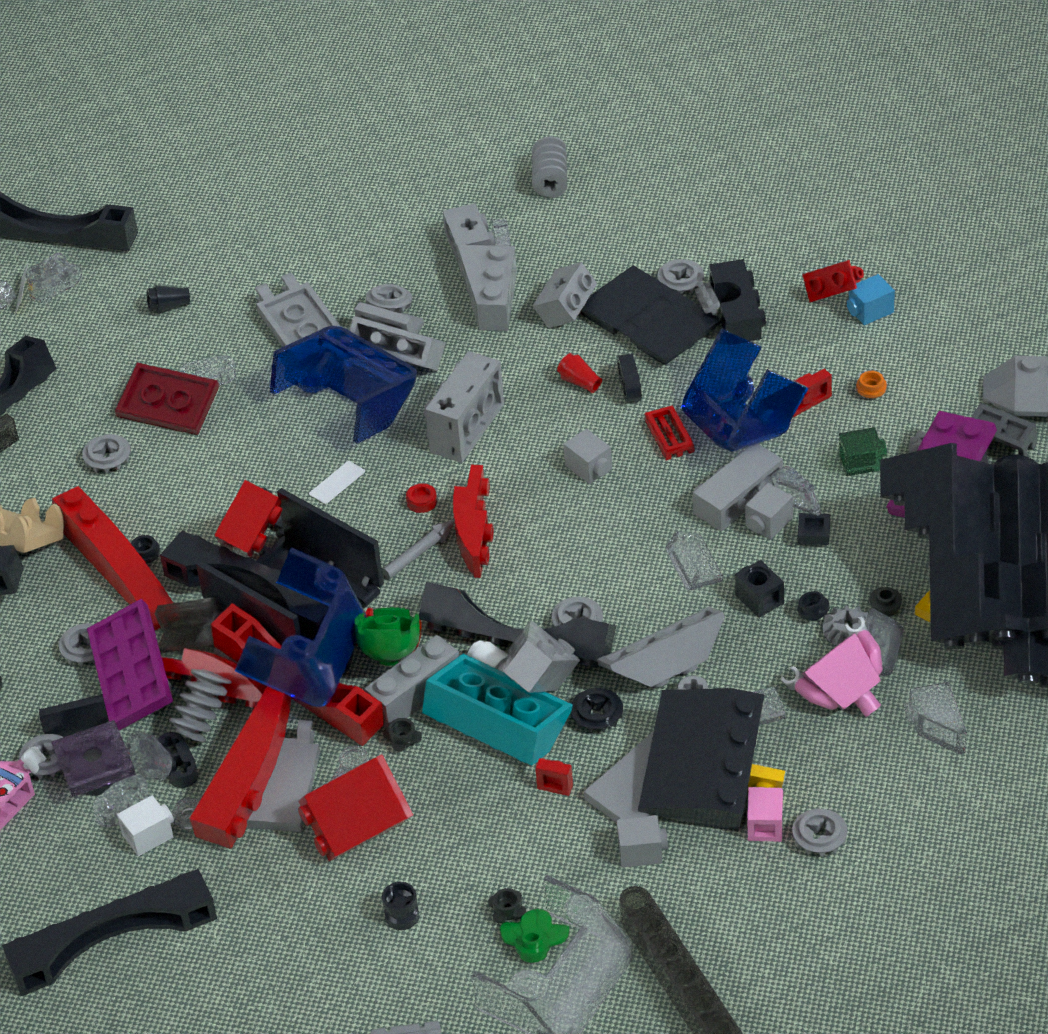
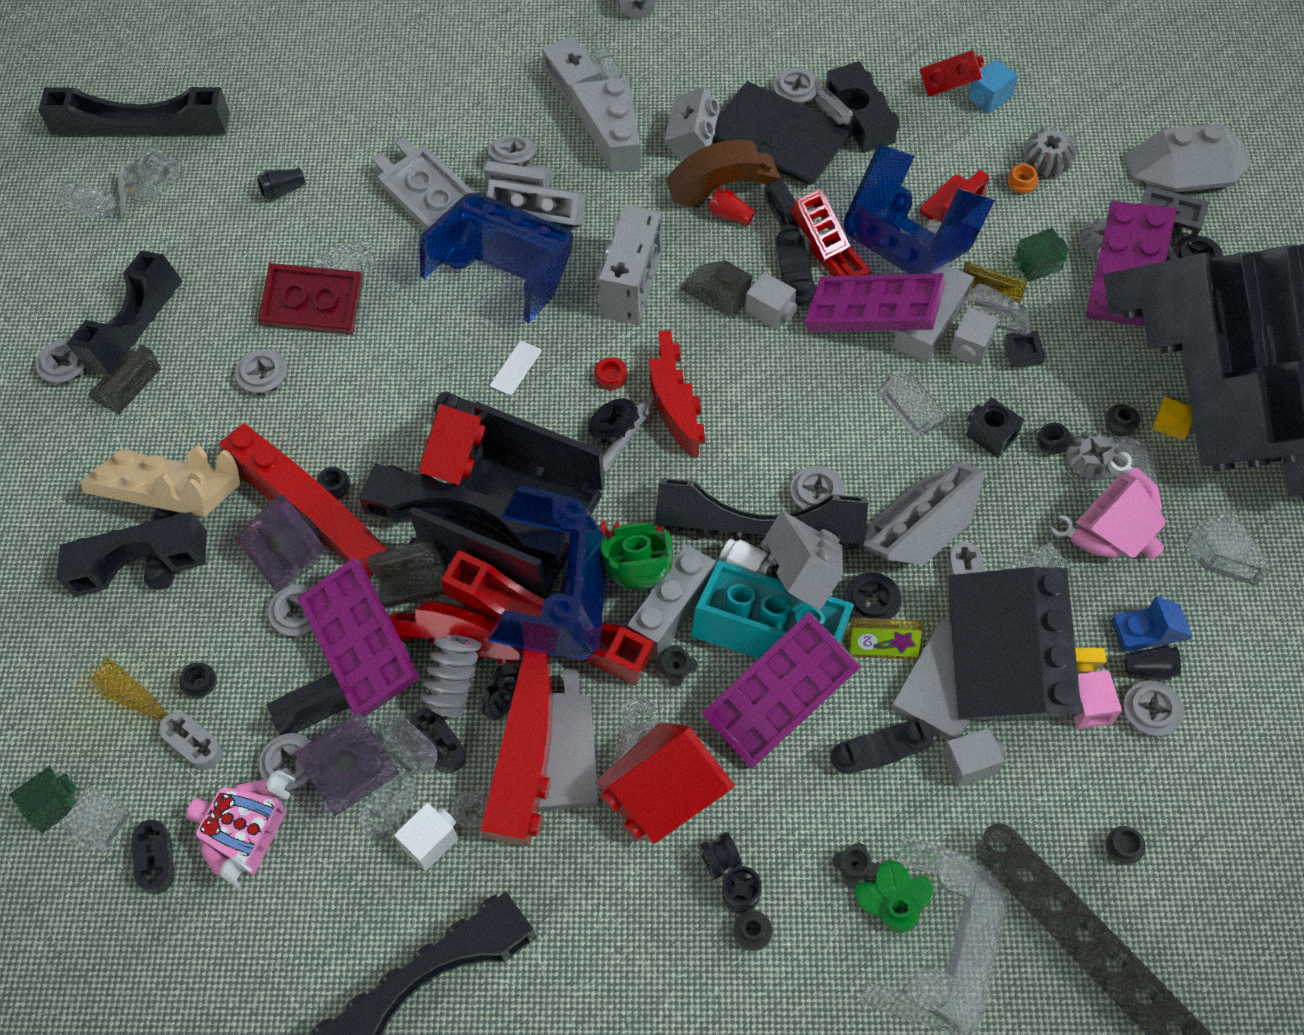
camera: 15 degrees left, 15 degrees up
(84, 584) = (281, 543): none -> clear purple piece
(236, 727) = (500, 691): none -> black gear
(389, 874) = (720, 855): none -> black wheel
(404, 946) = (749, 942): none -> pearl dark grey plate
(409, 533) = (604, 422): none -> black gear
(481, 756) = (781, 689): none -> magenta plate
(544, 439) = (719, 286): none -> clear smoke slope
(554, 776) = (858, 692): red plate -> none
(562, 824) = (881, 747): none -> black piece
(572, 332) = (717, 165): none -> reddish brown arch
(595, 739) = (885, 638): none -> slope
(623, 429) = (794, 263): none -> black piece
(648, 378) = (822, 209): none -> slope
(681, 467) = (876, 302): none -> magenta plate
(752, 929) = (1125, 845): none -> pearl dark grey plate
(816, 473) = (1003, 283): none -> clear yellow slope
(837, 796) = (1156, 662): none -> black cone
(851, 769) = (1151, 627): none -> blue slope
(904, 364) = (1050, 152): none -> light grey gear

